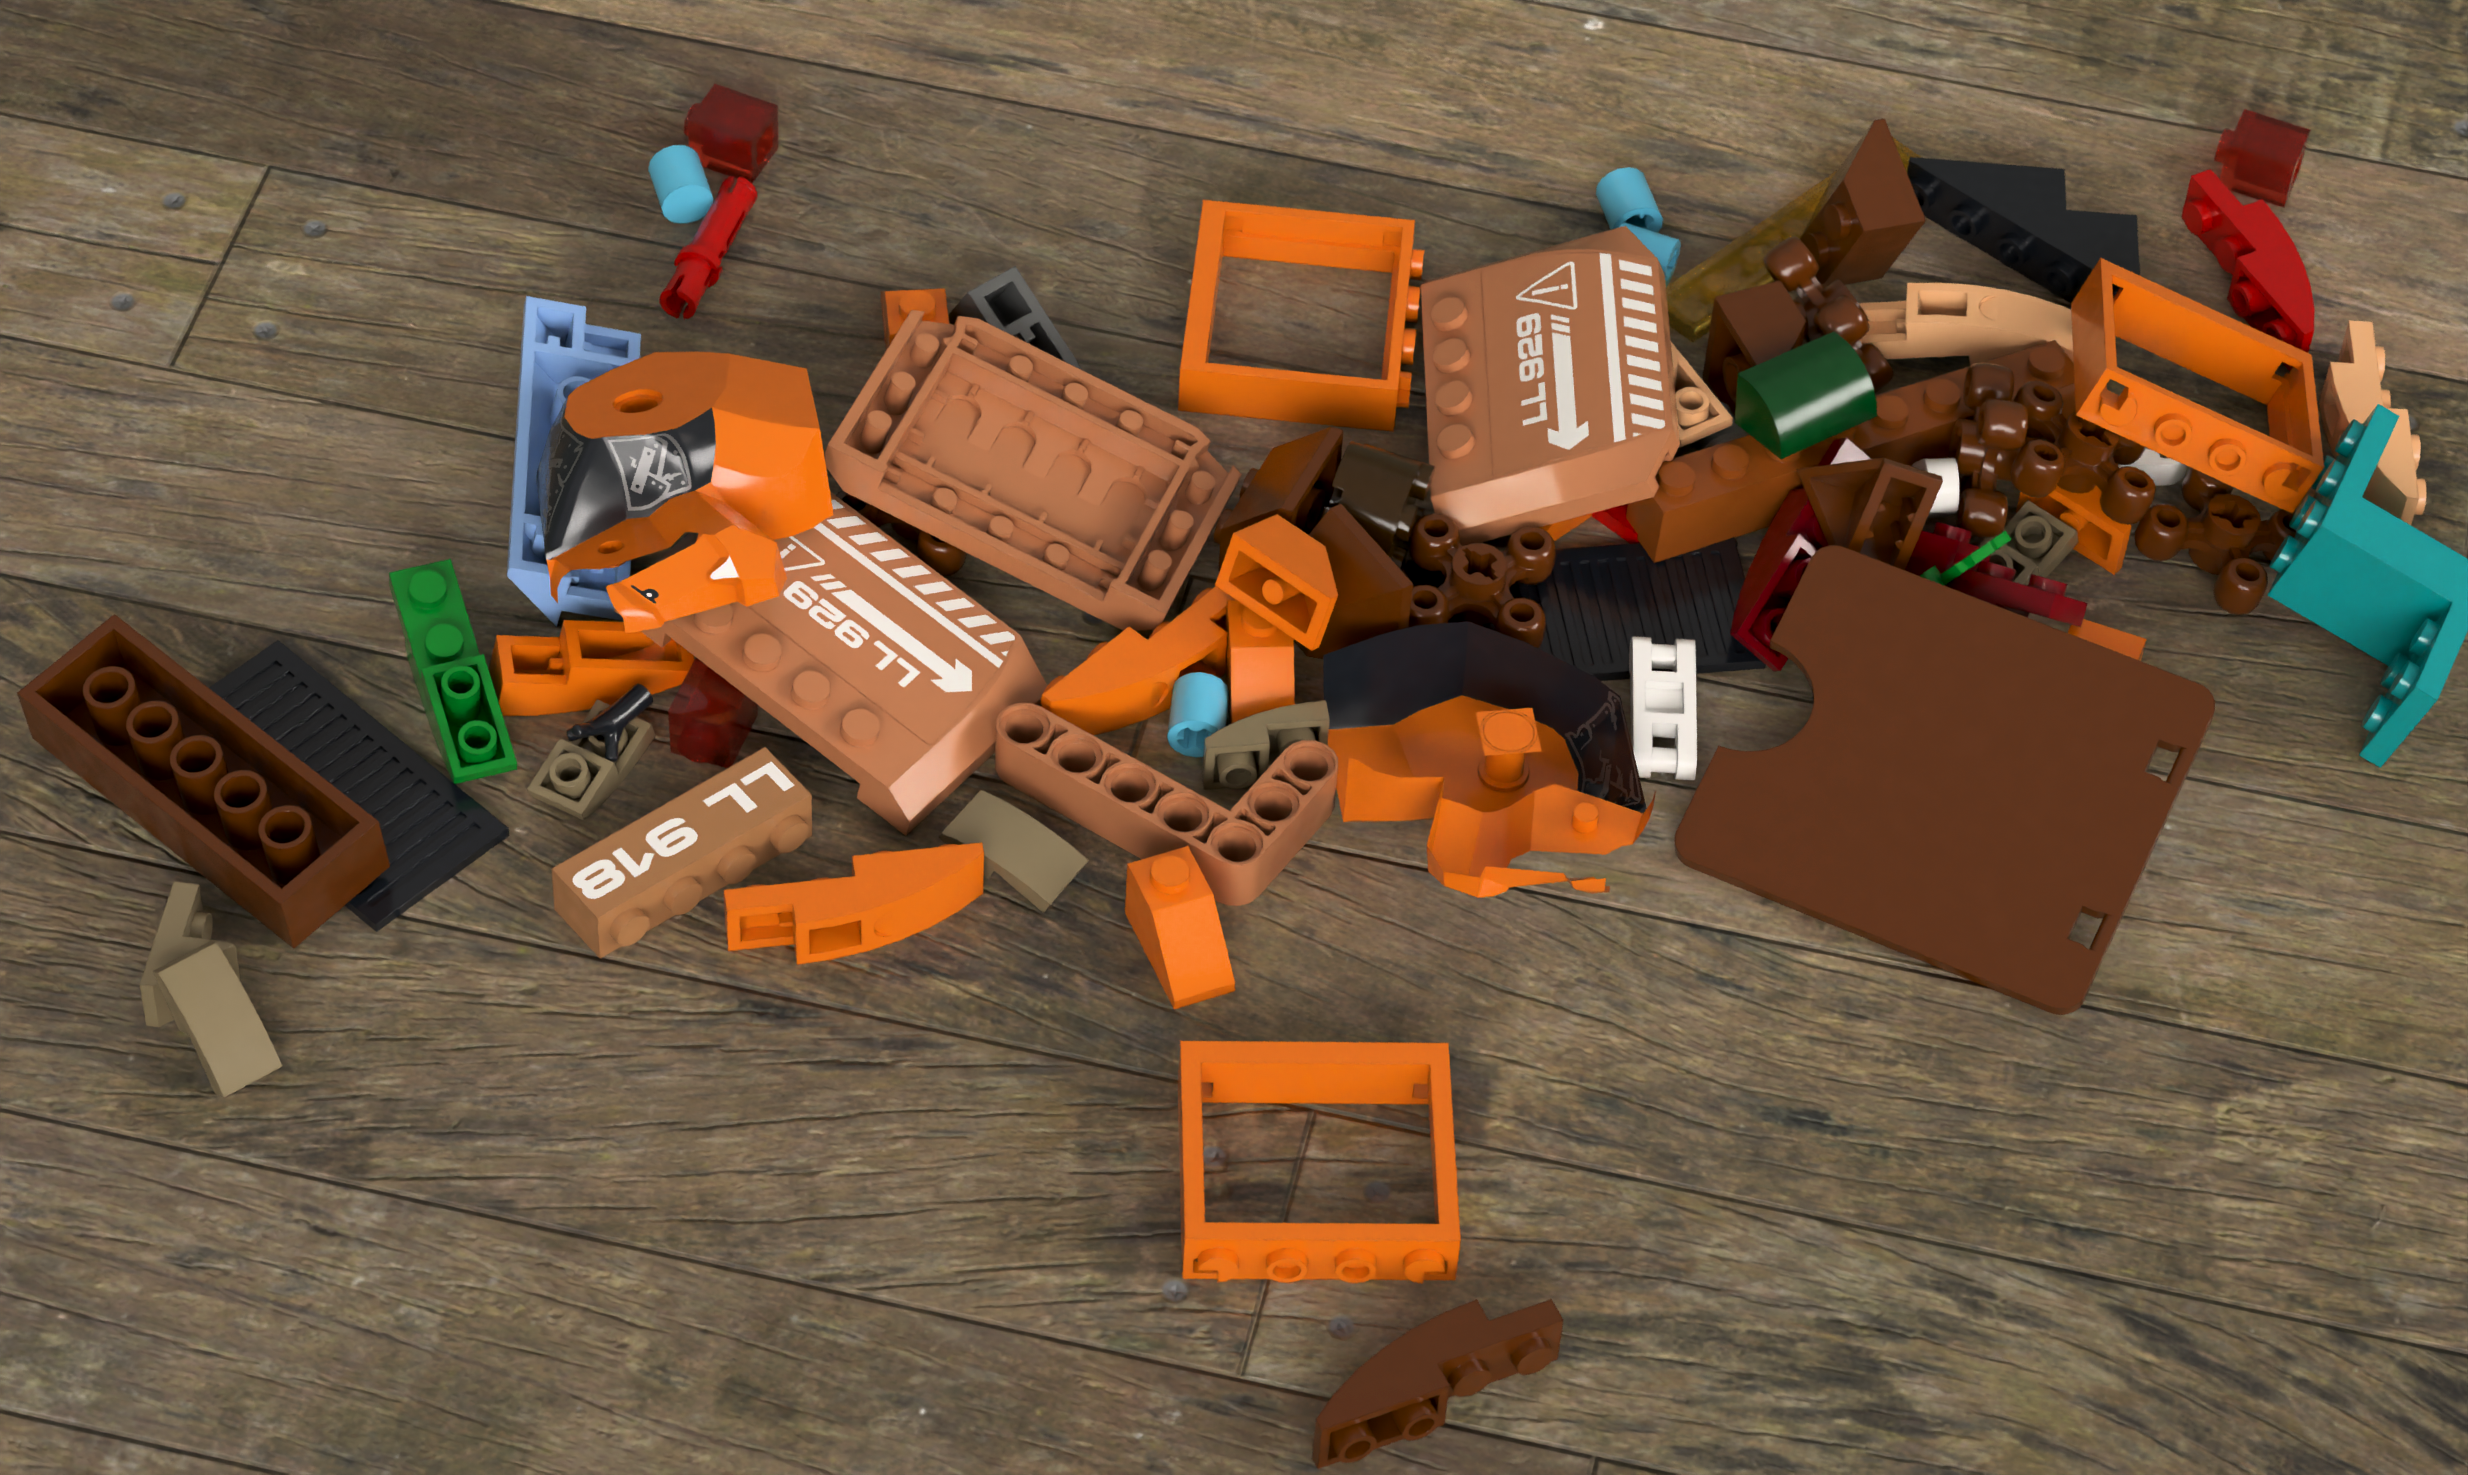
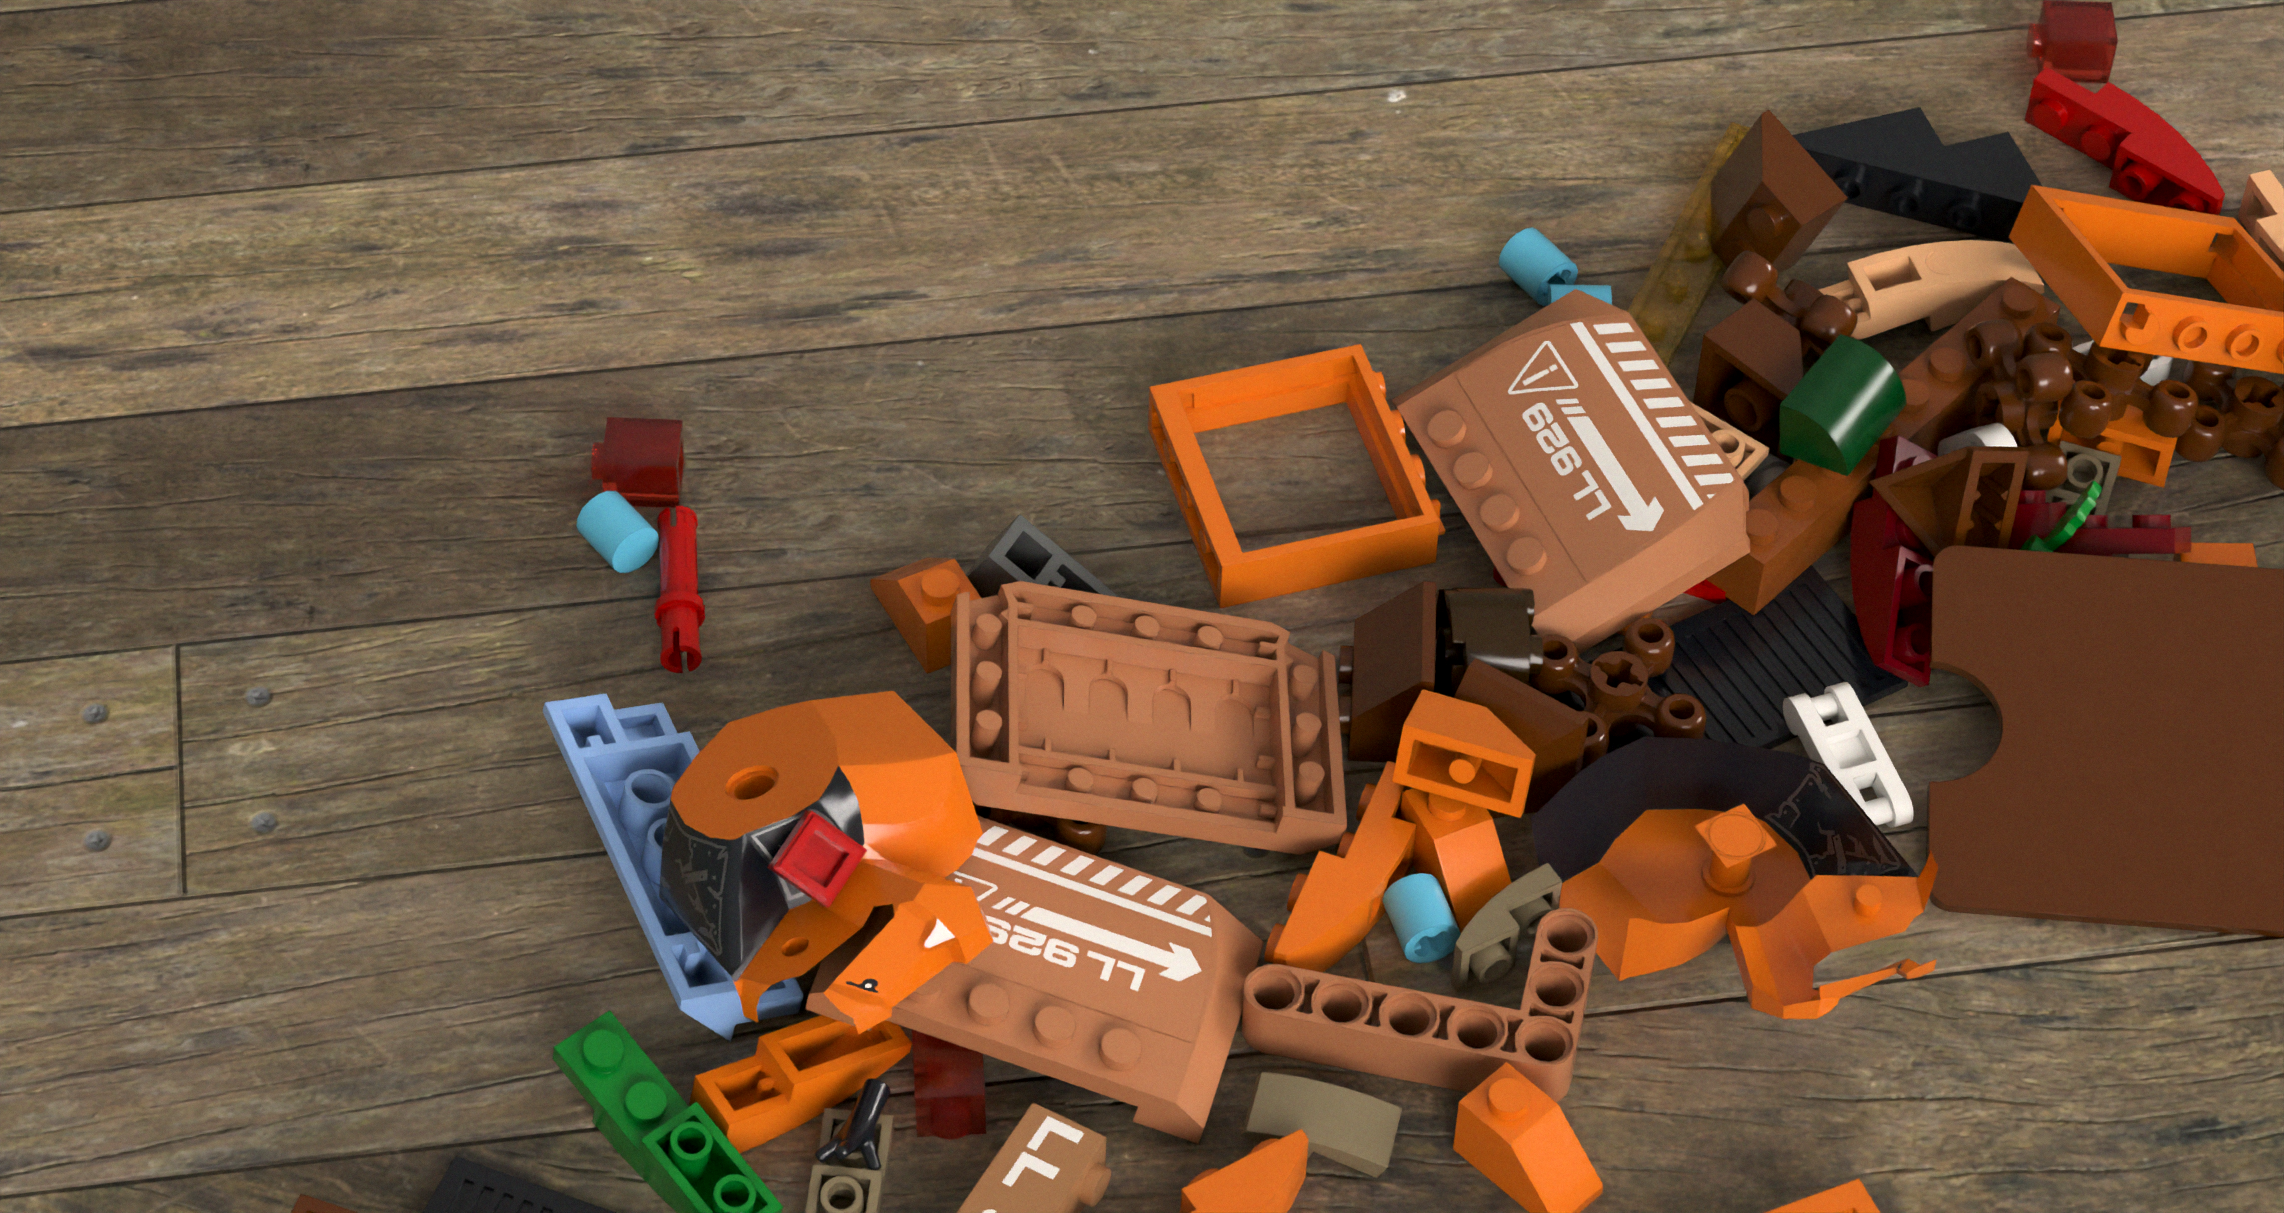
camera: 20 degrees left, 0 degrees up
(656, 477) = (817, 858): none -> red tile

